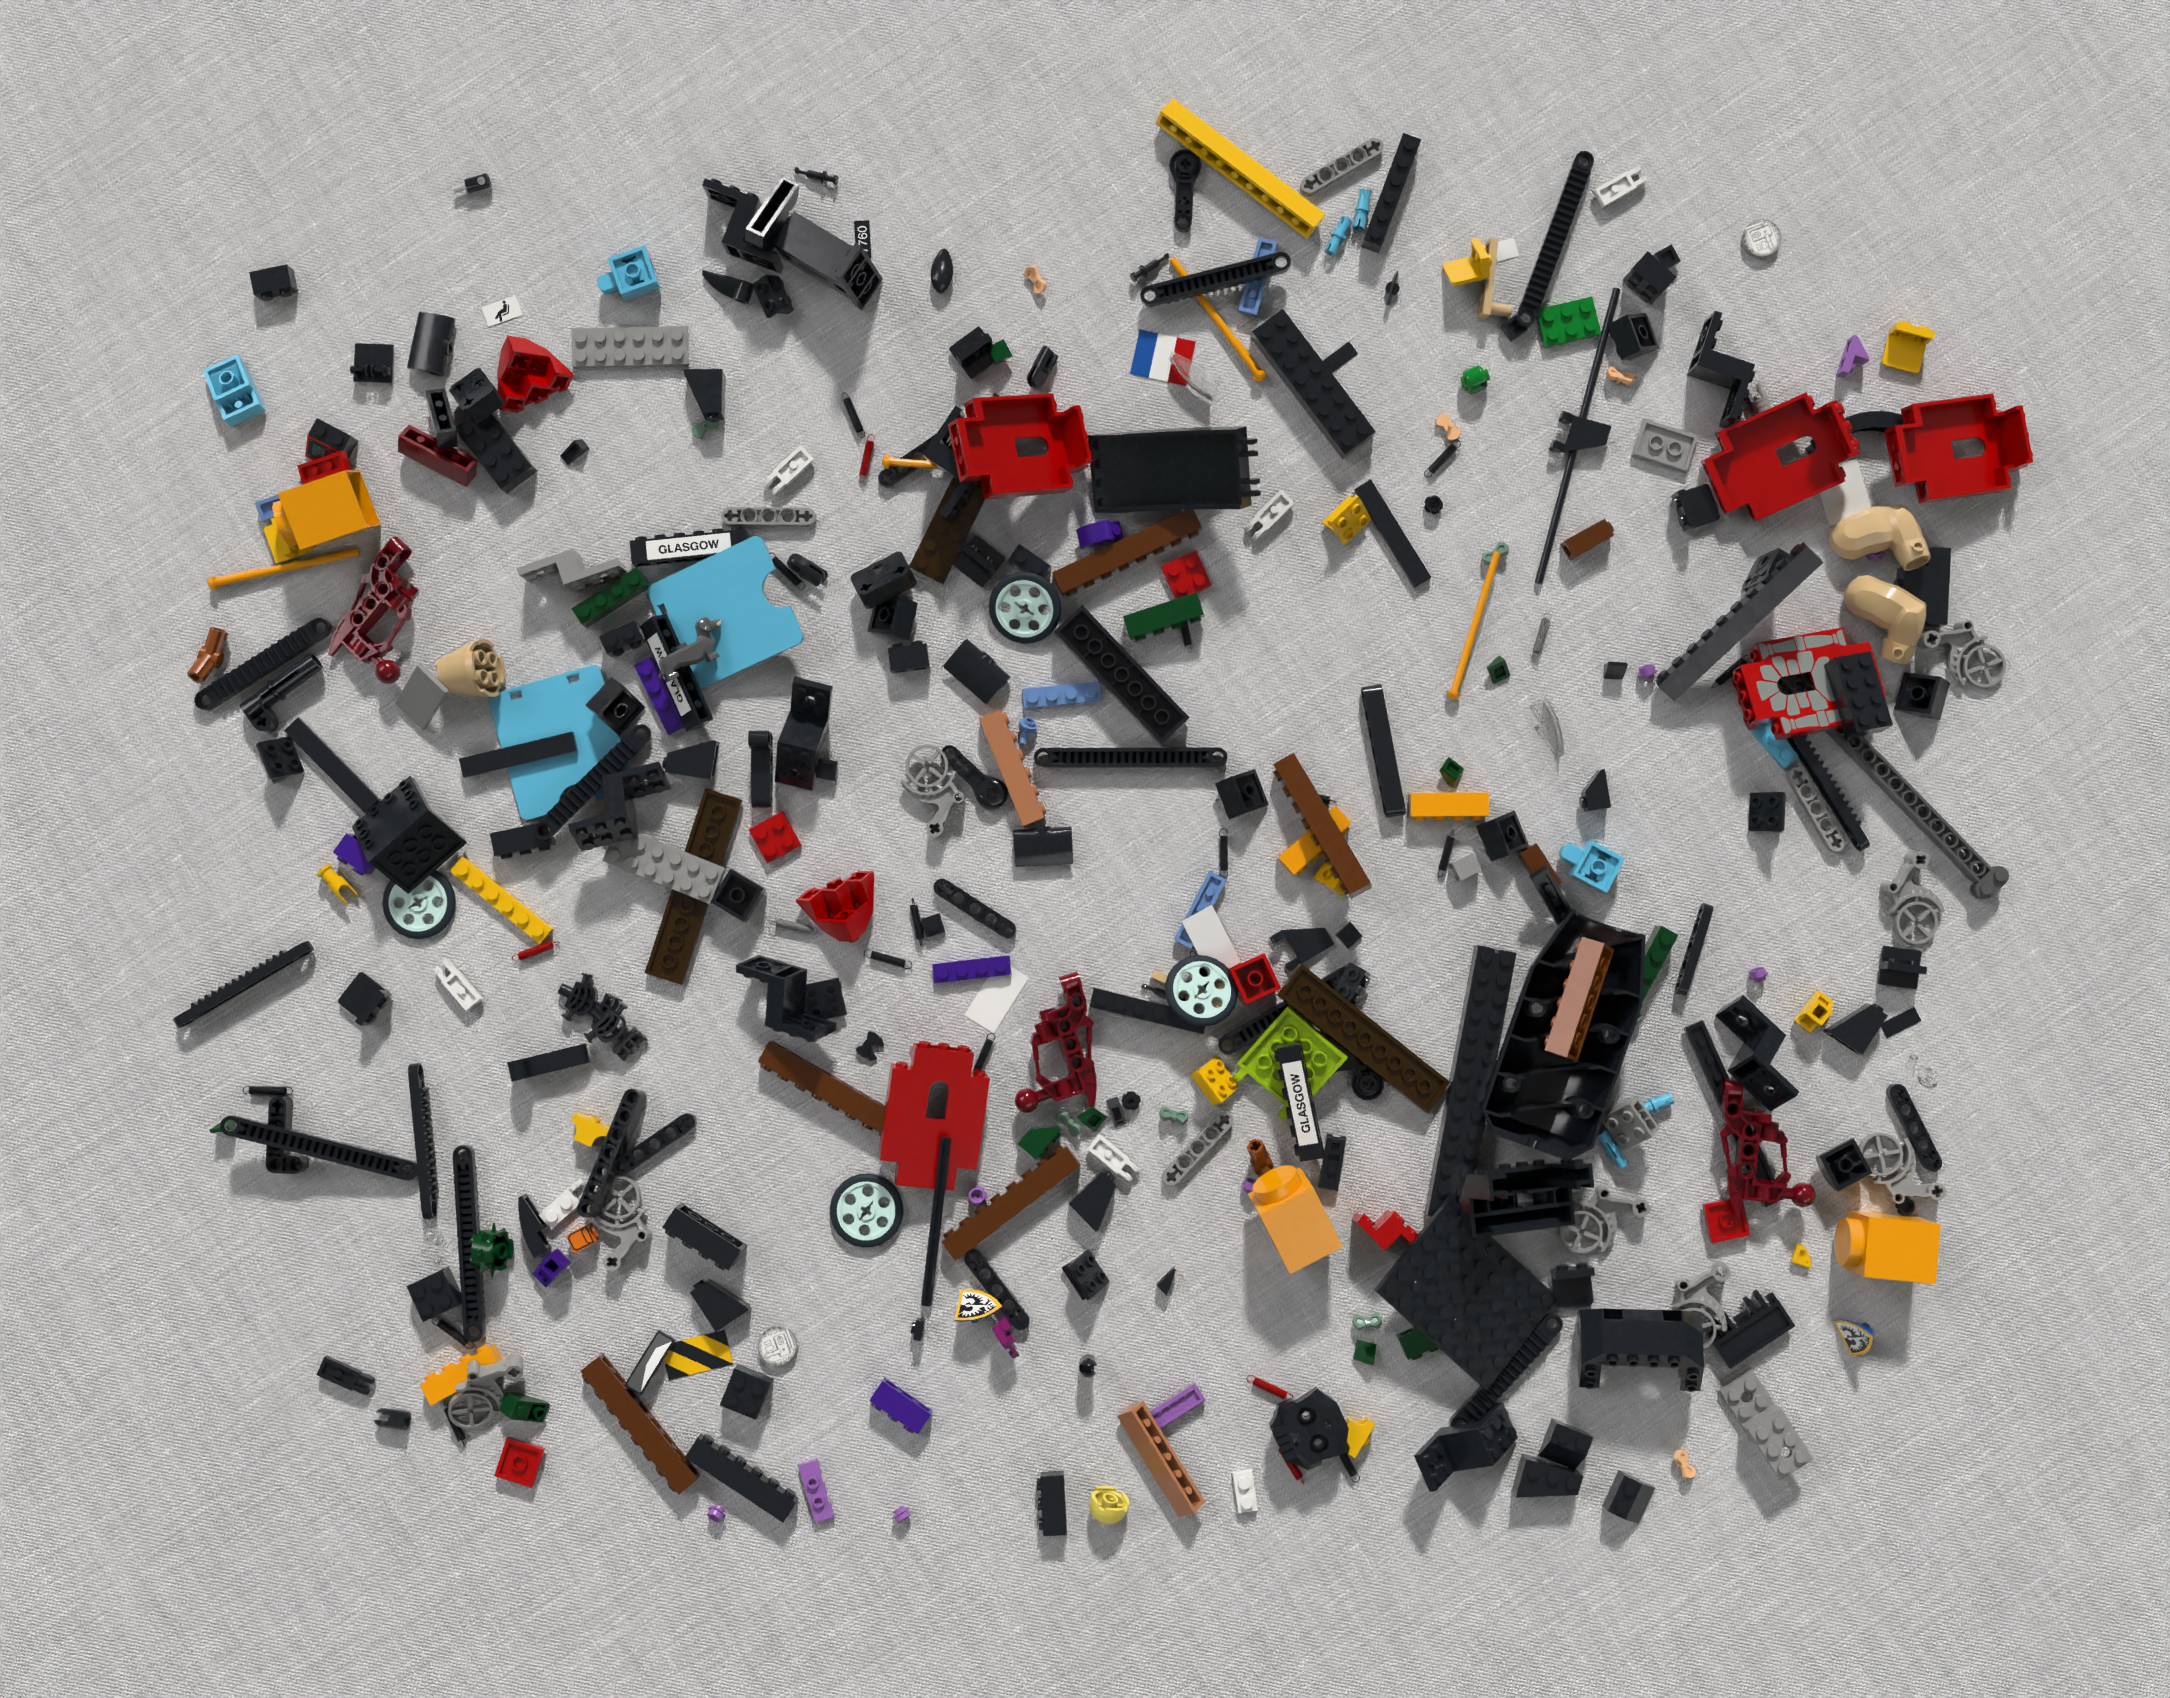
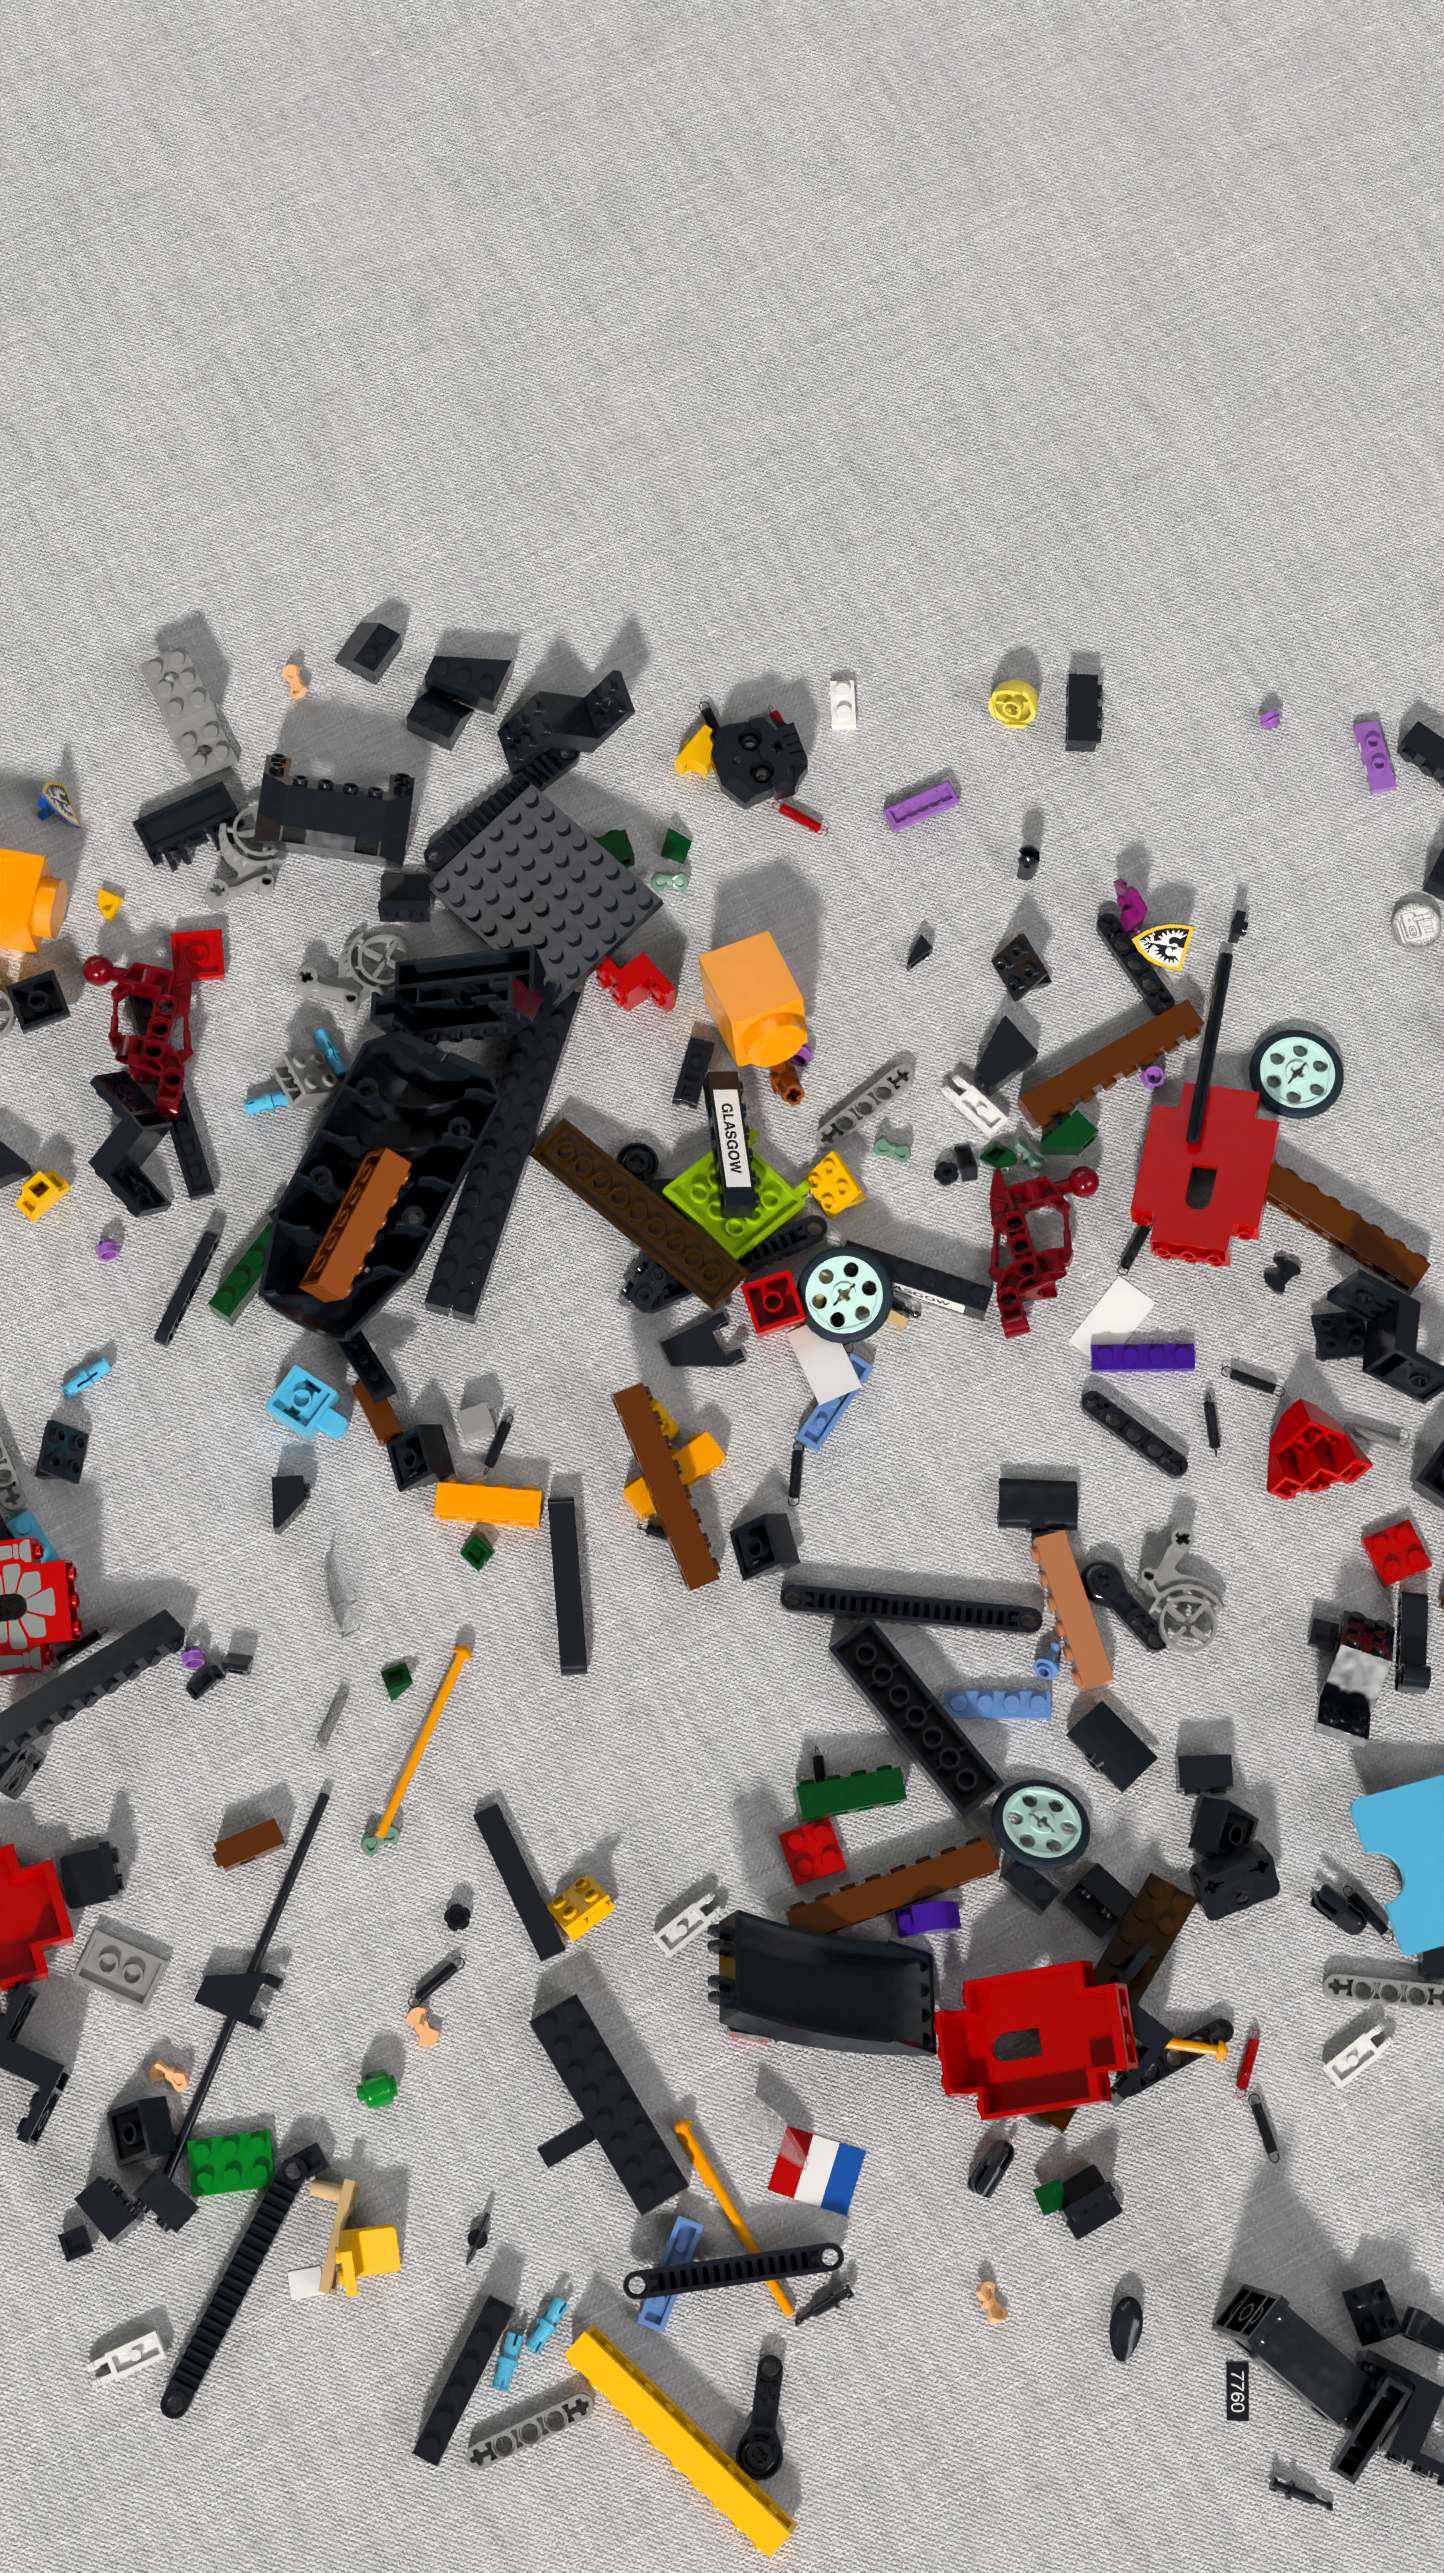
camera: 175 degrees left, 15 degrees down
(900, 1406) = (1265, 840): dark purple brick -> none
(933, 925) = (1190, 1418): black plate -> none
(1161, 1459) = (945, 748): nougat brick -> none
(1348, 935) = (641, 1352): black slope -> none
(1611, 289) = (165, 2201): none -> black brick
(1635, 655) = (205, 1681): none -> black piece
(1758, 872) = (85, 1378): none -> medium azure pin

